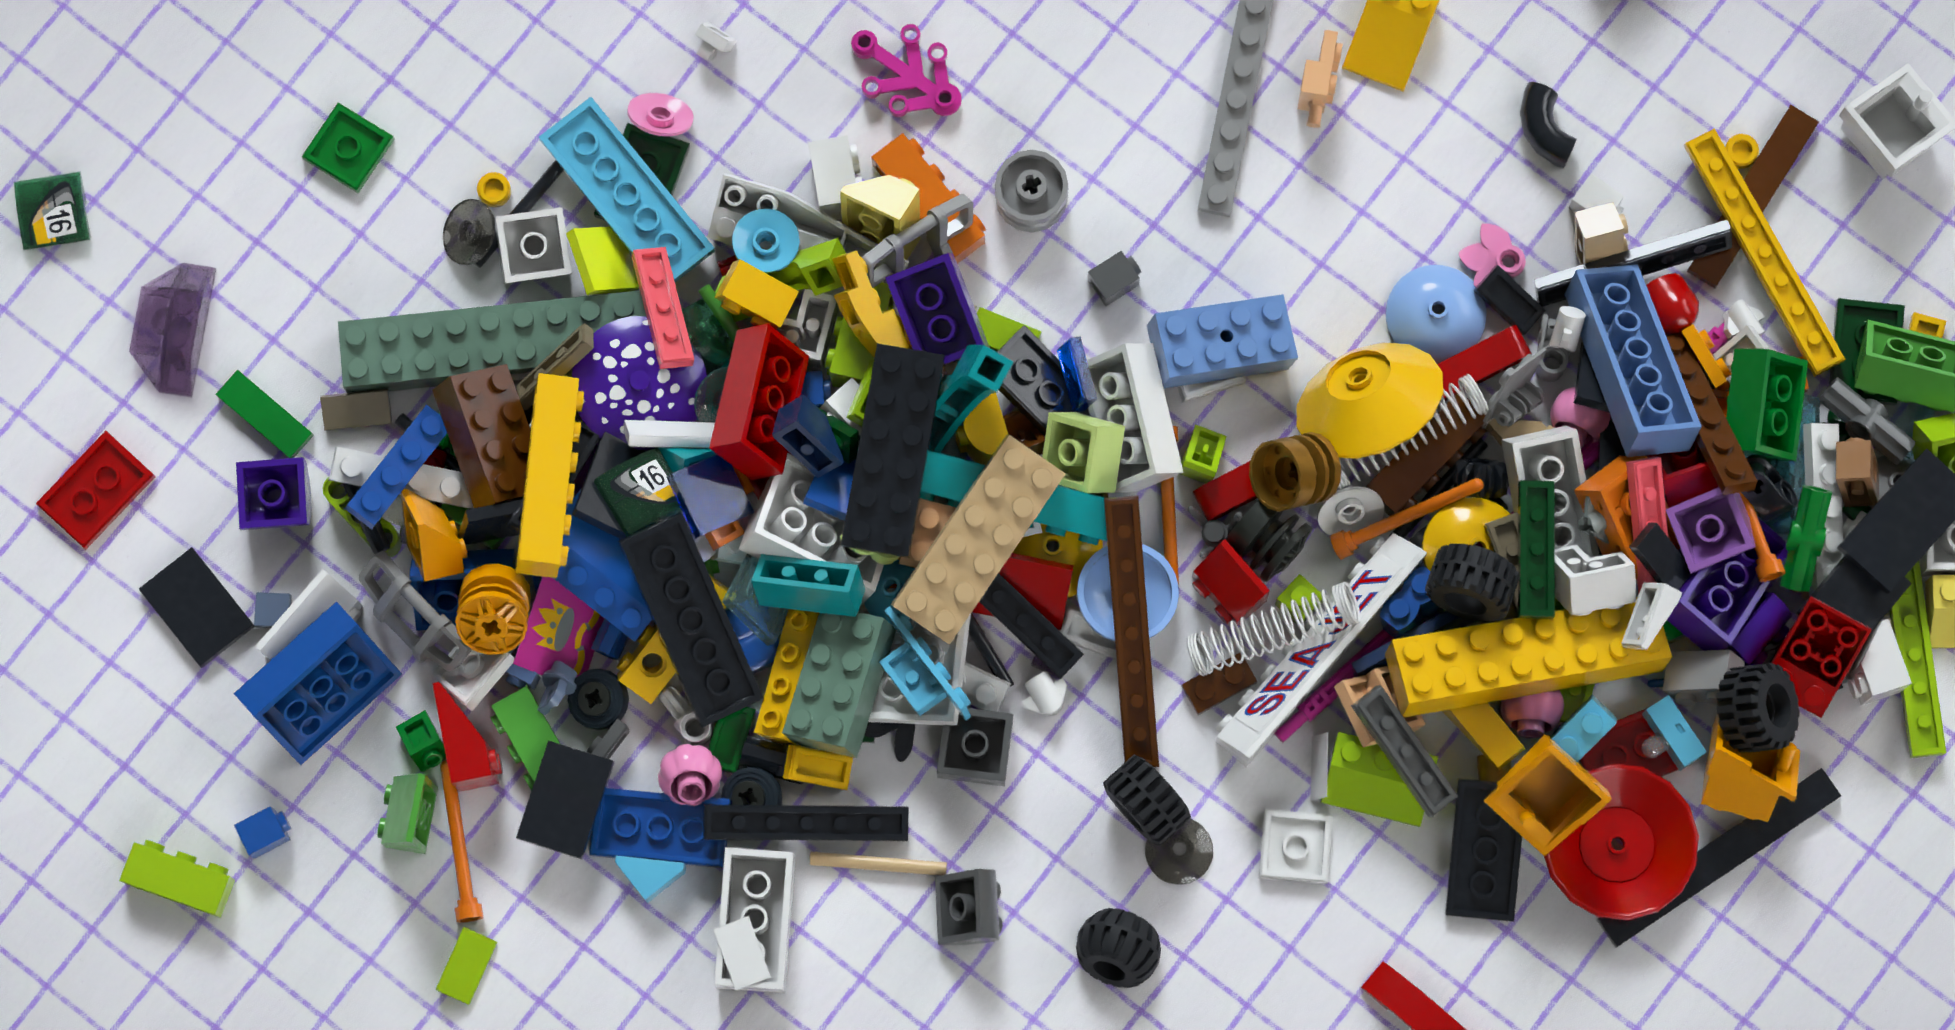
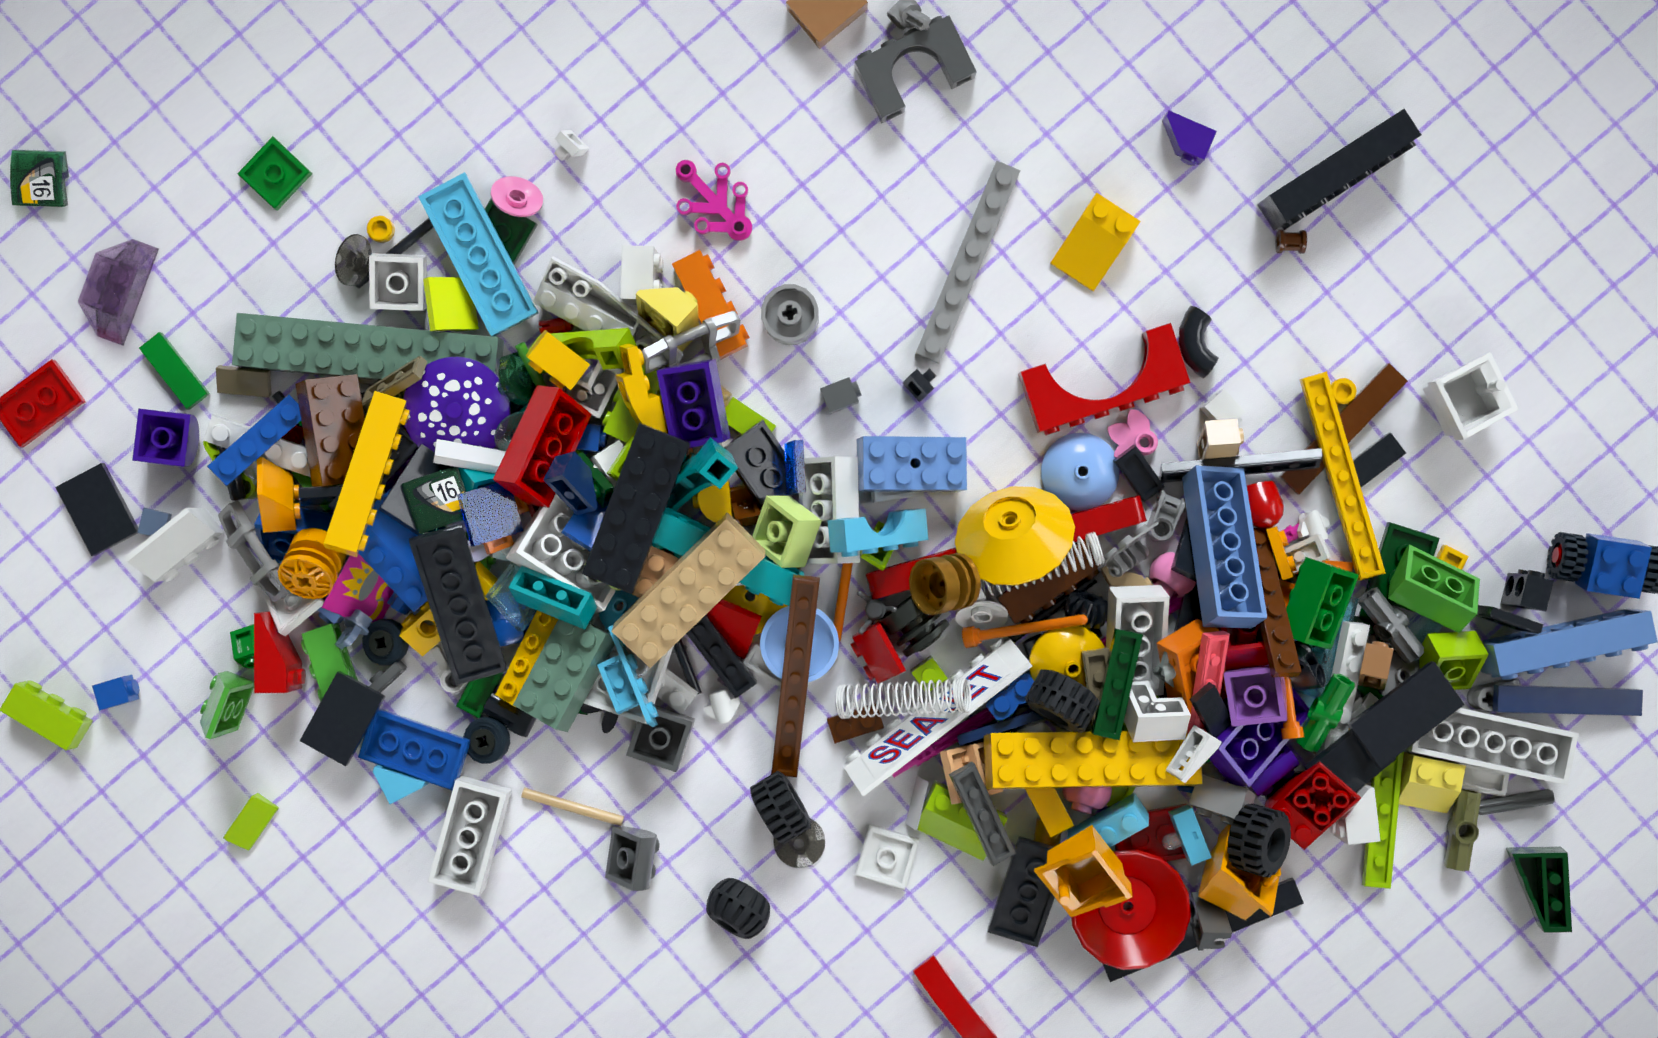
camera: 10 degrees right, 10 degrees up
(318, 683) = (171, 591): blue slope -> none
(468, 906) = (260, 779): orange piece -> none
(662, 308) = (484, 354): coral tile -> none
(689, 774) = (441, 716): bright pink plant -> none
(742, 953) = (452, 862): white sticker -> none
(766, 226) = (570, 305): medium azure dish -> none
(805, 822) = (521, 769): black tile -> none
(817, 767) = (534, 730): yellow tile -> none
(1169, 432) = (855, 534): none -> medium azure arch
(1211, 244) = (920, 384): none -> black tile
(1317, 81) = (1028, 274): light nougat plate -> none
(1388, 238) = (1160, 372): none -> red arch
(1567, 328) = (1179, 509): white piece -> none
(1720, 834) = (1208, 923): none -> dark grey hinge
(1804, 224) = (1377, 458): none -> black tile

